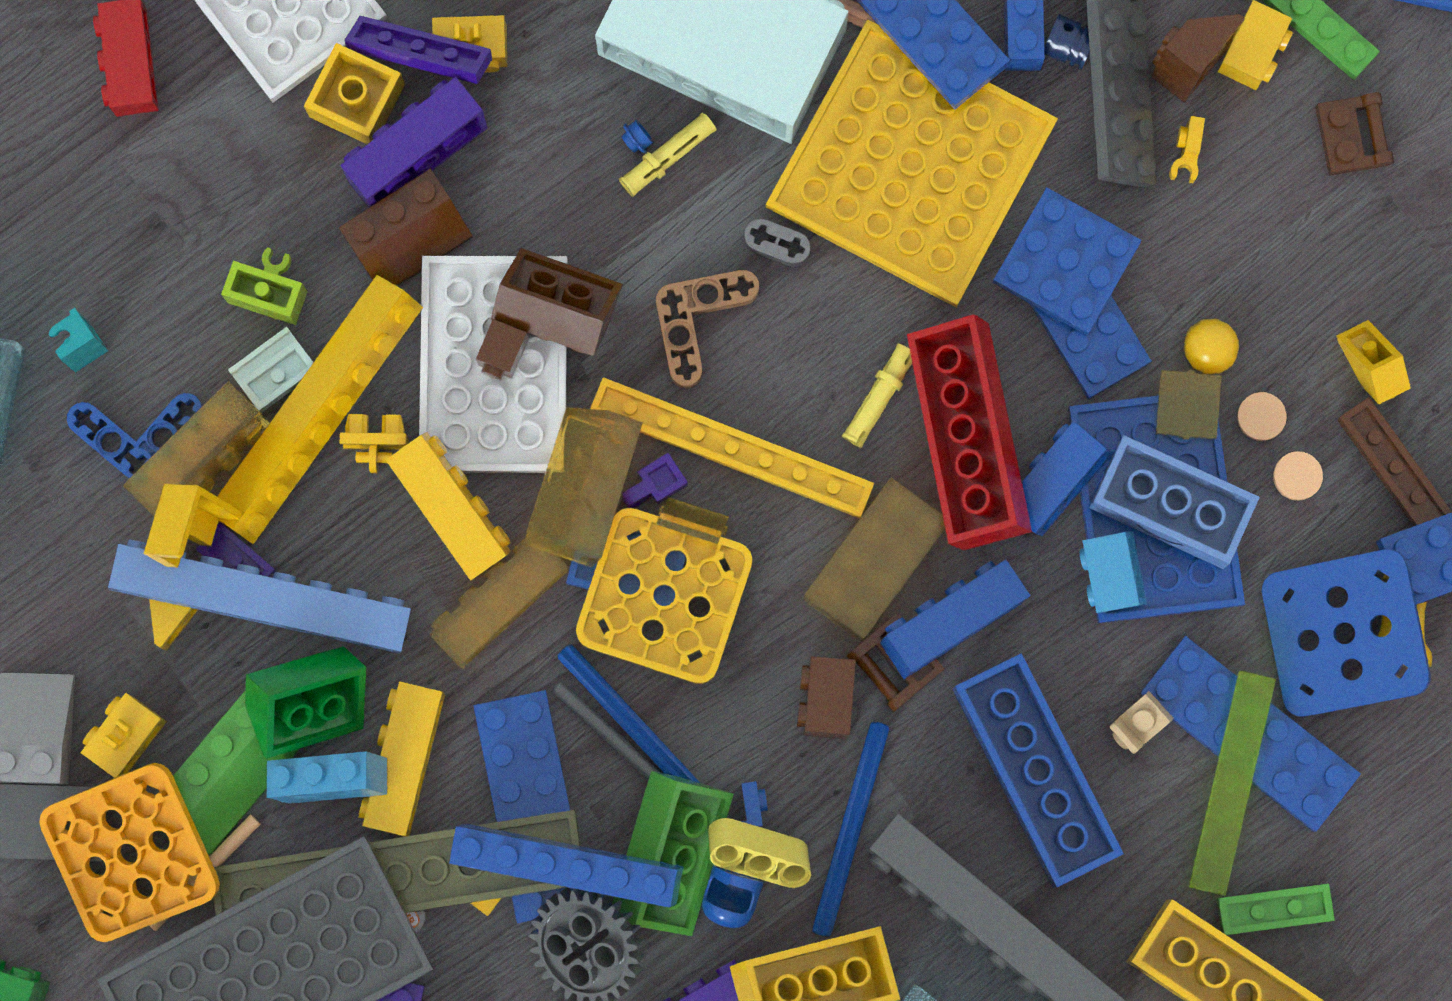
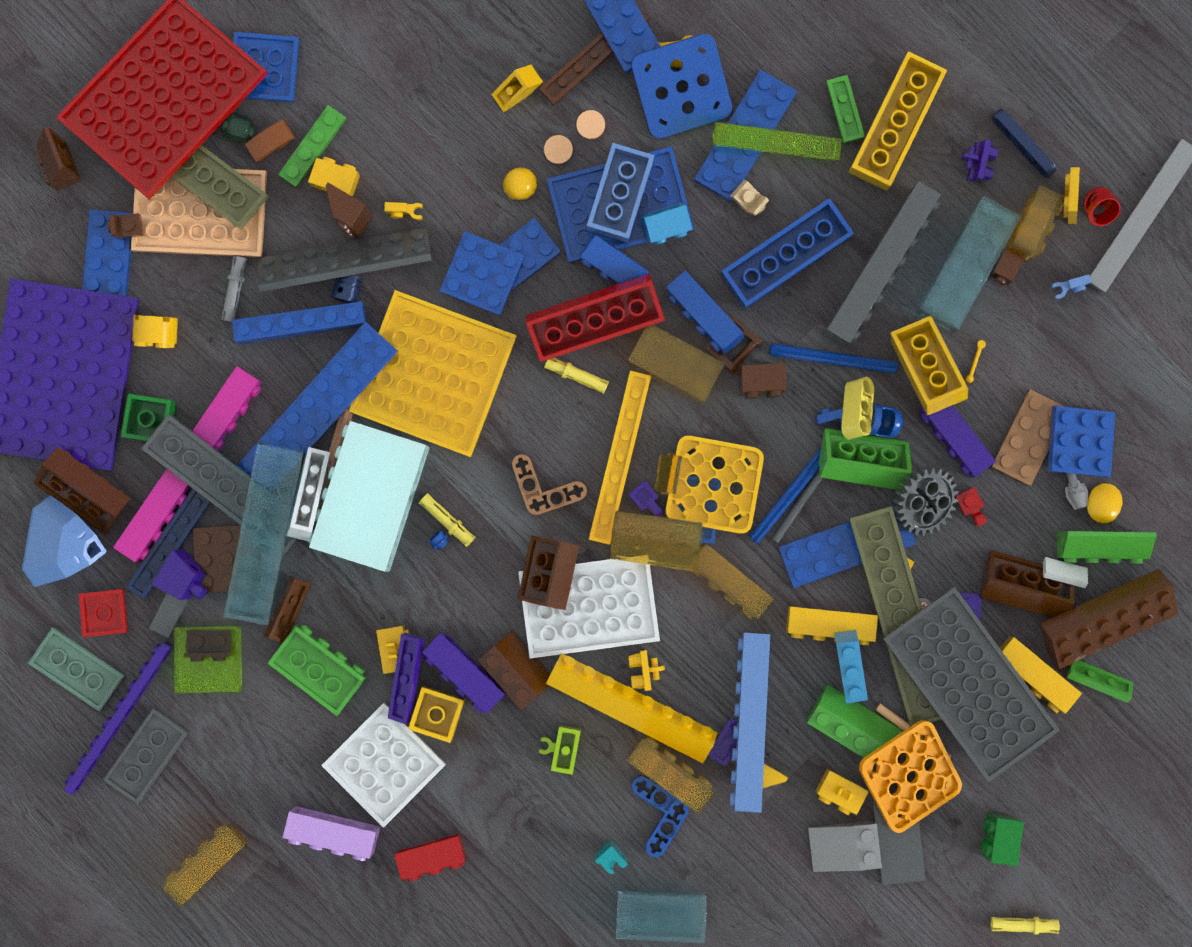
camera: 100 degrees left, 5 degrees up
(182, 515) = (714, 776): yellow panel -> none
(272, 369) = (610, 738): light aqua plate -> none
(306, 701) = (807, 685): green slope -> none
(449, 505) = (679, 619): yellow brick -> none
(501, 350) = (583, 601): reddish brown brick -> none
(566, 865) = (885, 517): blue brick -> none
(773, 250) = (486, 446): flat silver beam -> none
(1188, 404) = (558, 192): clear yellow piece -> none
(1342, 134) = (381, 121): reddish brown plate -> none

